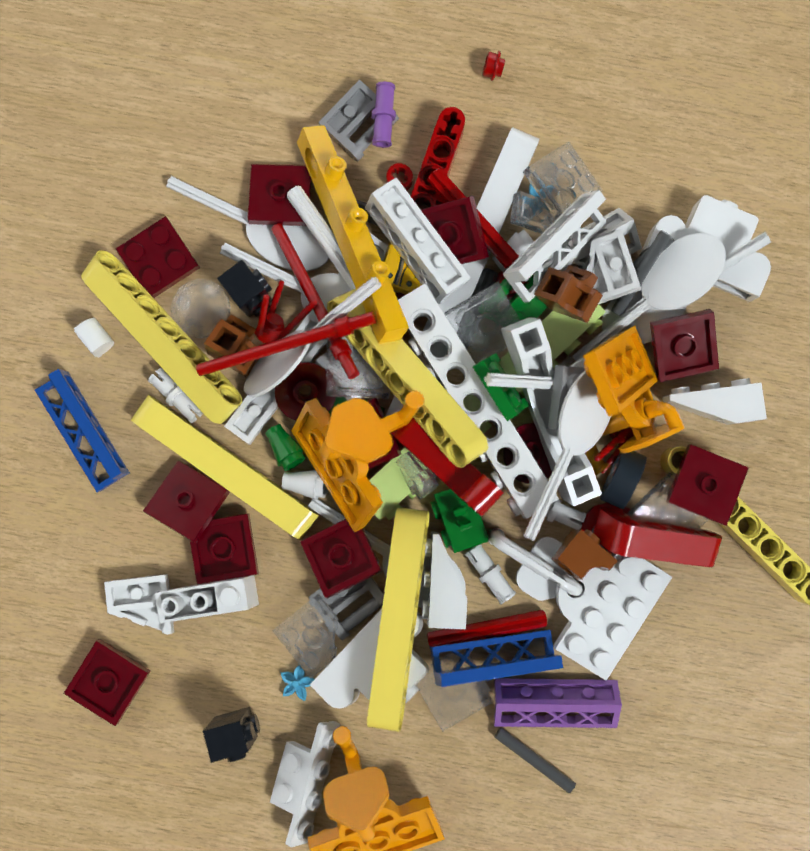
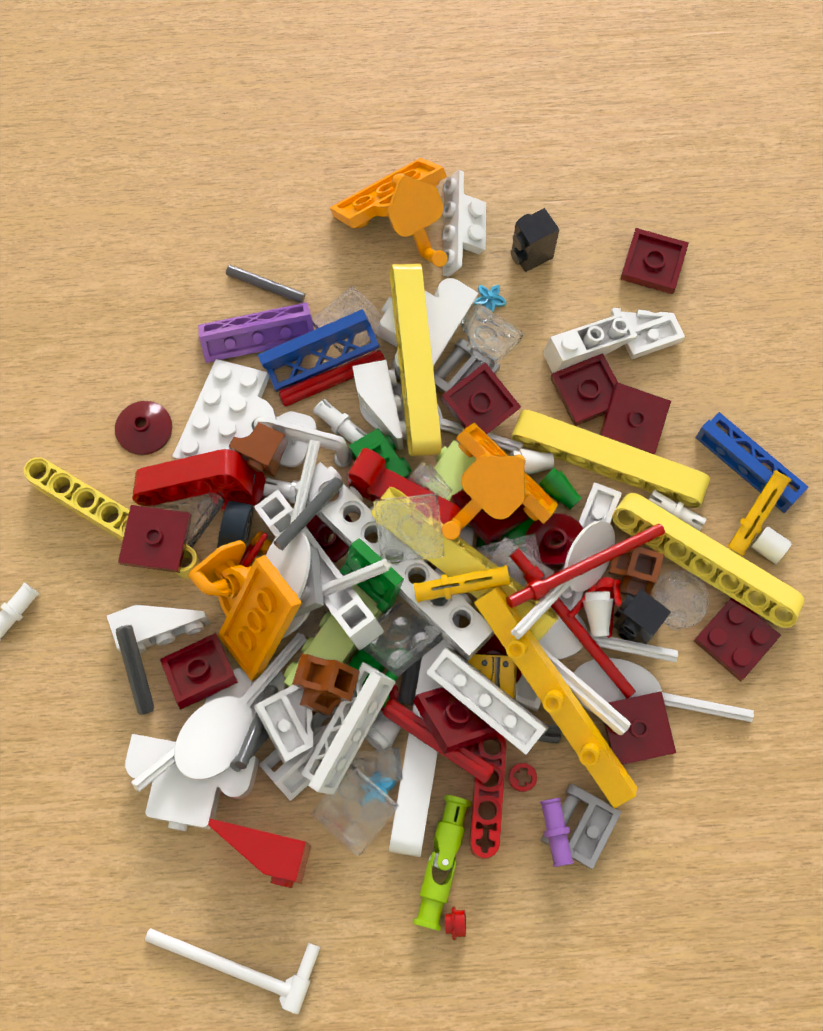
camera: 160 degrees right, 15 degrees down
(104, 361) = (759, 512): none -> yellow pin
(285, 305) = (598, 611): none -> white cone
(416, 349) = (424, 591): none -> yellow pin
(455, 415) = (409, 528): none -> clear plate
(491, 121) = (447, 842): none -> lime piece
(551, 461) = (308, 513): none -> dark grey bar
(651, 44) = (291, 991): none -> white bar
(656, 161) = (270, 853): none -> red slope
(680, 618) = (143, 439): none -> dark red dish
(746, 360) = (135, 669): none -> dark grey axle

